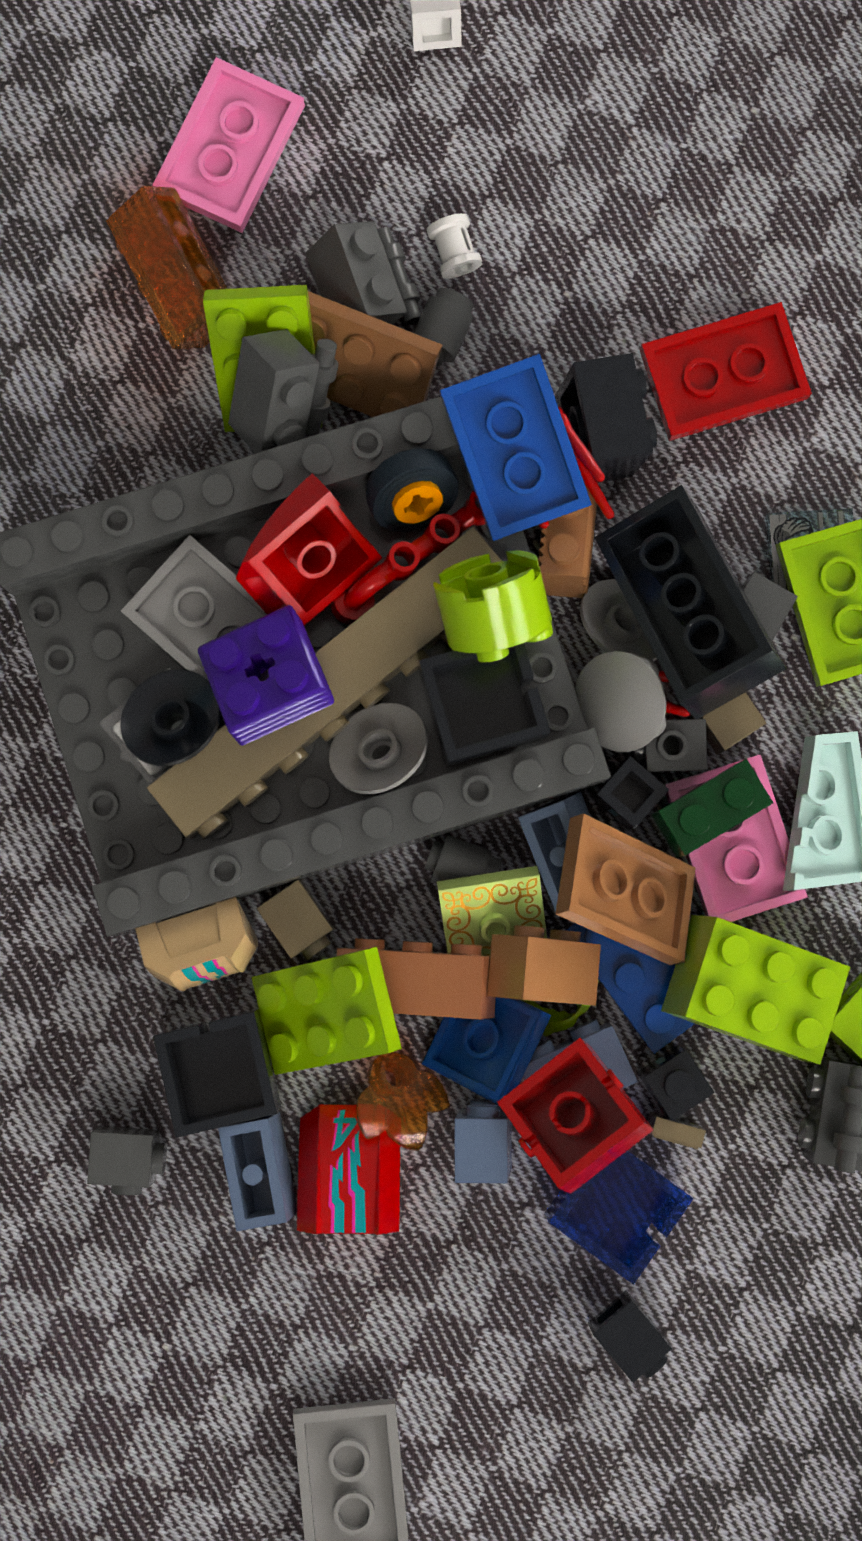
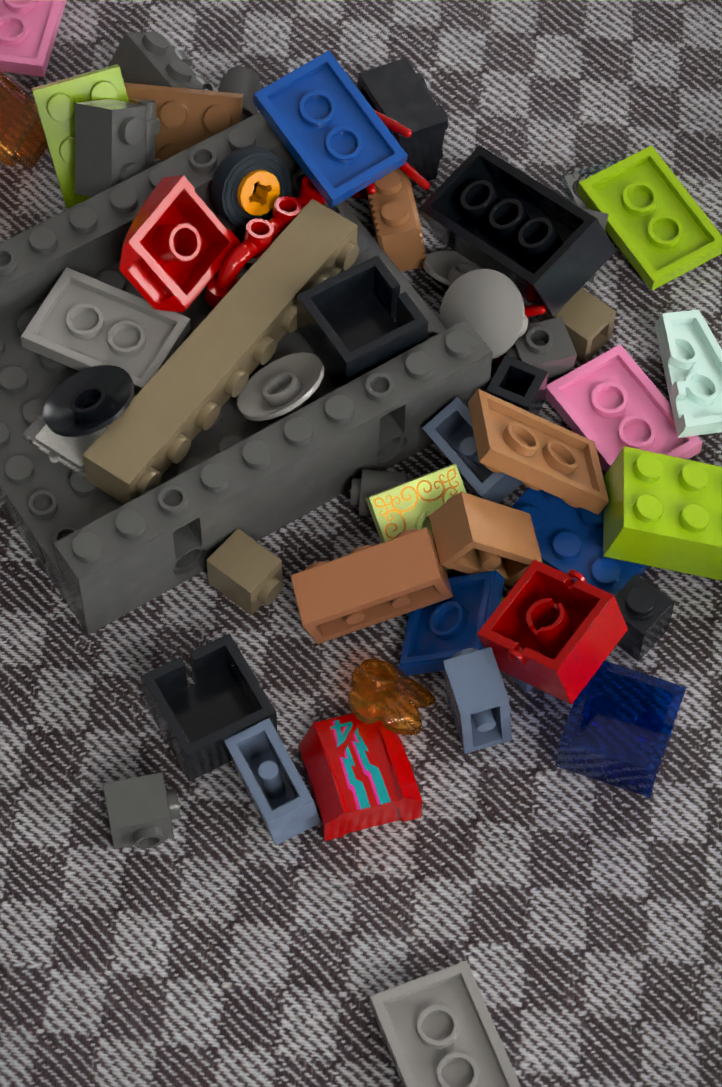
camera: 10 degrees left, 25 degrees down
(198, 945) = (164, 597): tan slope -> none
(294, 682) = (165, 337): dark purple brick -> none
(326, 1012) = (299, 623): lime plate -> none
(454, 245) = (230, 42): white bush -> none
(493, 604) = (348, 230): lime brick -> none
(630, 1338) = (673, 845): black brick -> none
(676, 1131) = (653, 657): dark tan tile -> none
(712, 808) = (590, 381): dark green brick -> none
(725, 371) = (492, 80): red plate -> none

